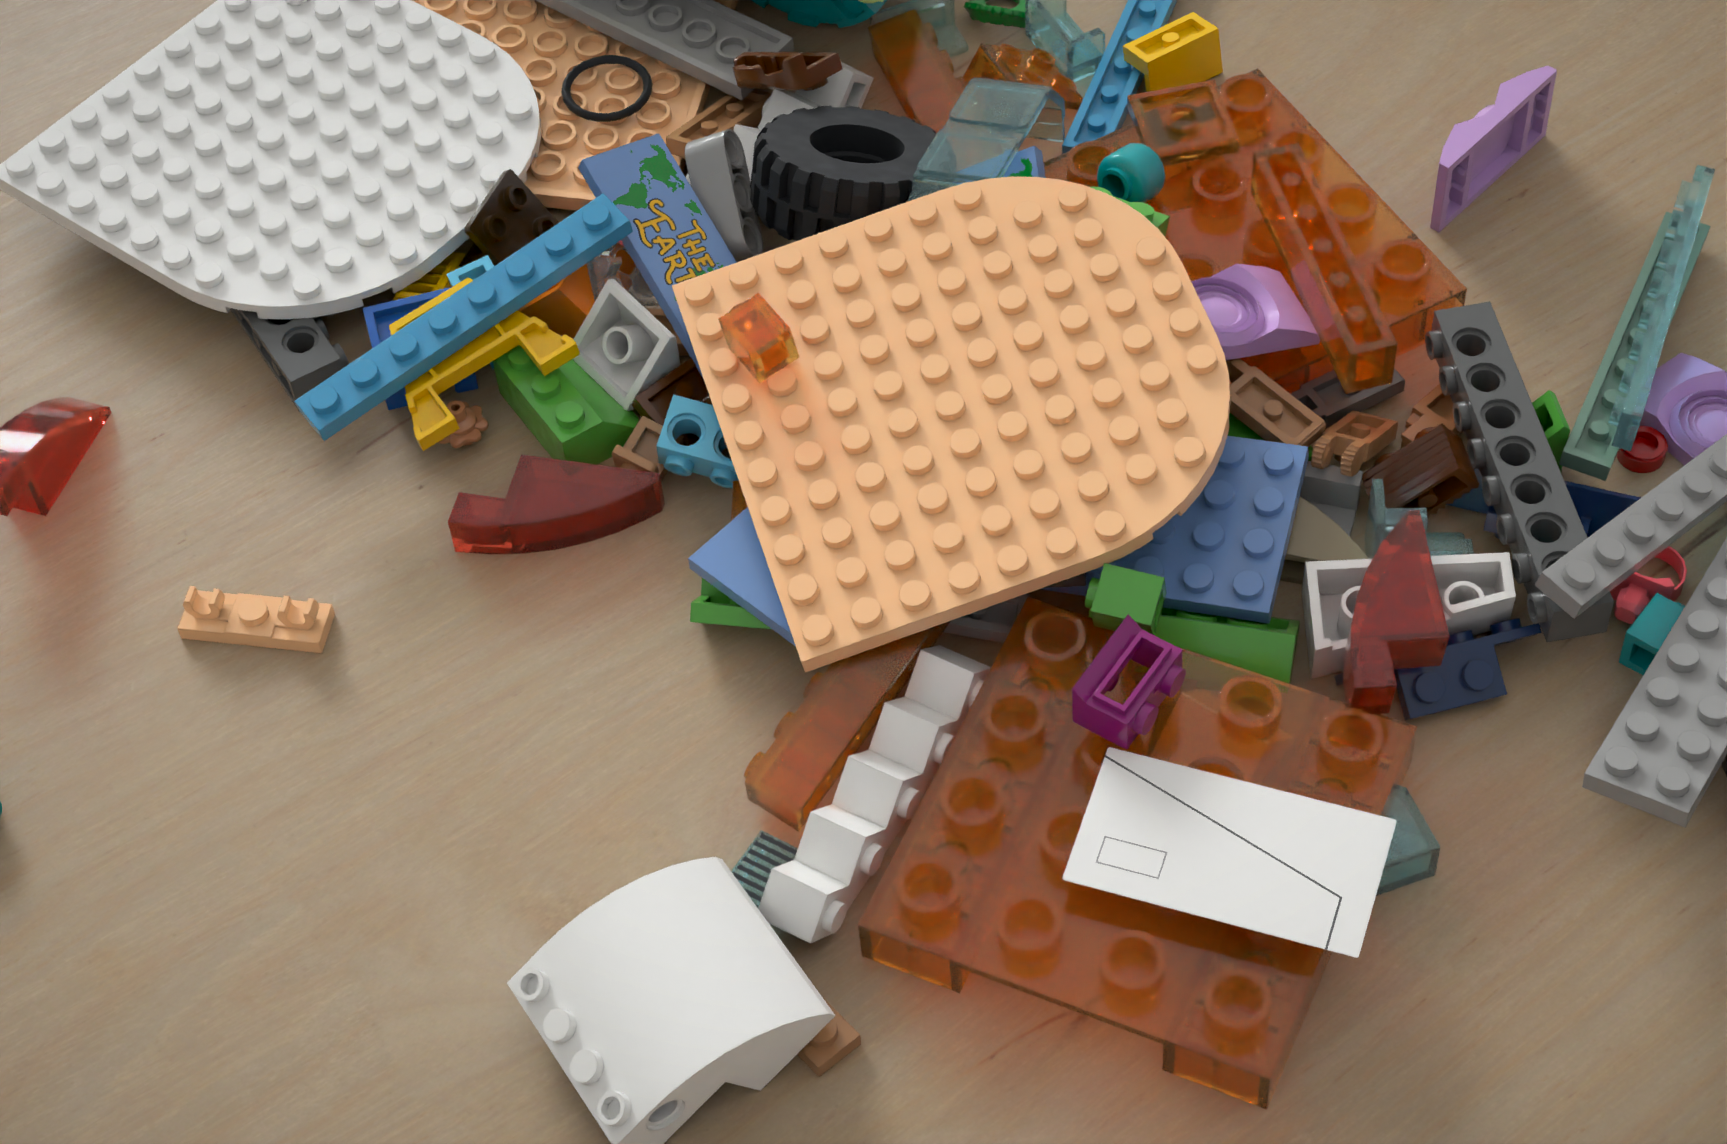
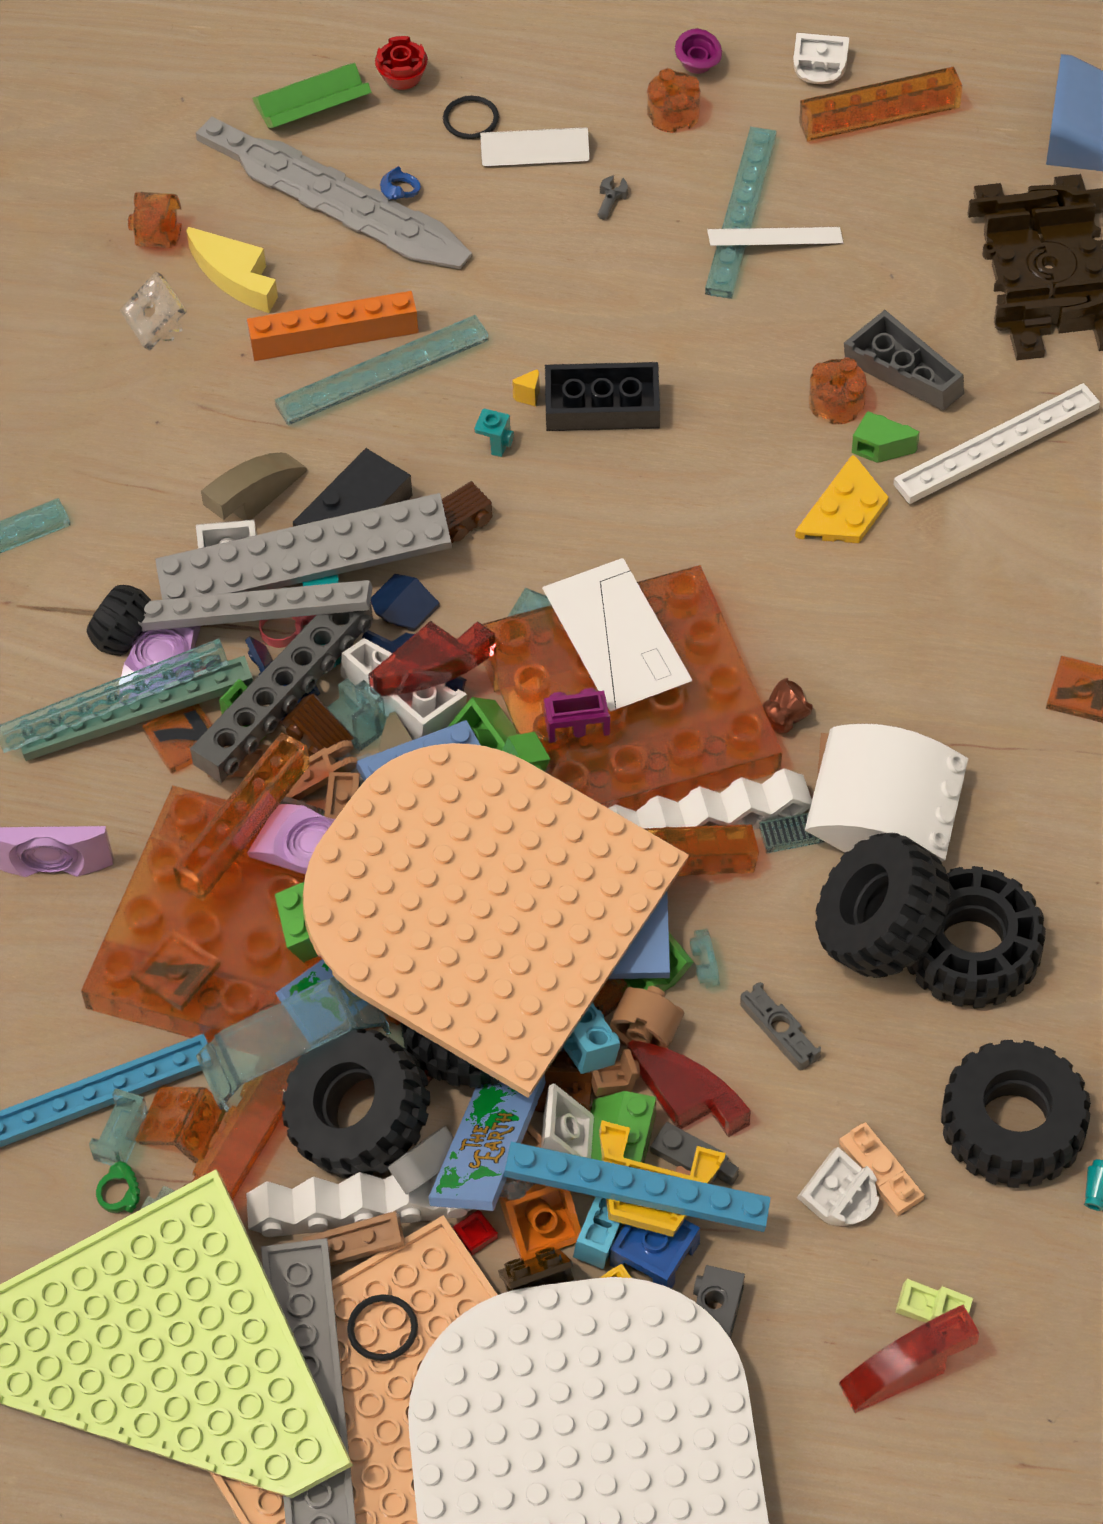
camera: 135 degrees left, 5 degrees up
(56, 549) = (928, 1303): none -> yellowish green slope
(150, 826) = (1008, 1154): none -> black tyre
(275, 553) = (841, 1191): none -> white slope
(389, 990) = (991, 974): none -> black tyre
(471, 468) = (680, 1147): none -> dark grey hinge
(492, 658) = (790, 1042): none -> dark grey piece
(500, 806) = (882, 905): none -> black tyre
(665, 509) = (646, 1017): none -> medium nougat brick
(684, 646) = (707, 970): none -> clear light blue plate
(758, 337) = (539, 994): clear orange brick -> none
(785, 70) = (304, 1208): reddish brown slope -> none
(936, 1020) = (786, 706): none -> copper hair
(1132, 173) = (244, 956): teal head -> none
(1177, 53) = (90, 1056): yellow panel -> none
(1558, 366) = (175, 735): none -> clear orange tile
(1561, 725) = (404, 602): none -> dark blue slope
(1669, 888) = (466, 510): none -> reddish brown brick

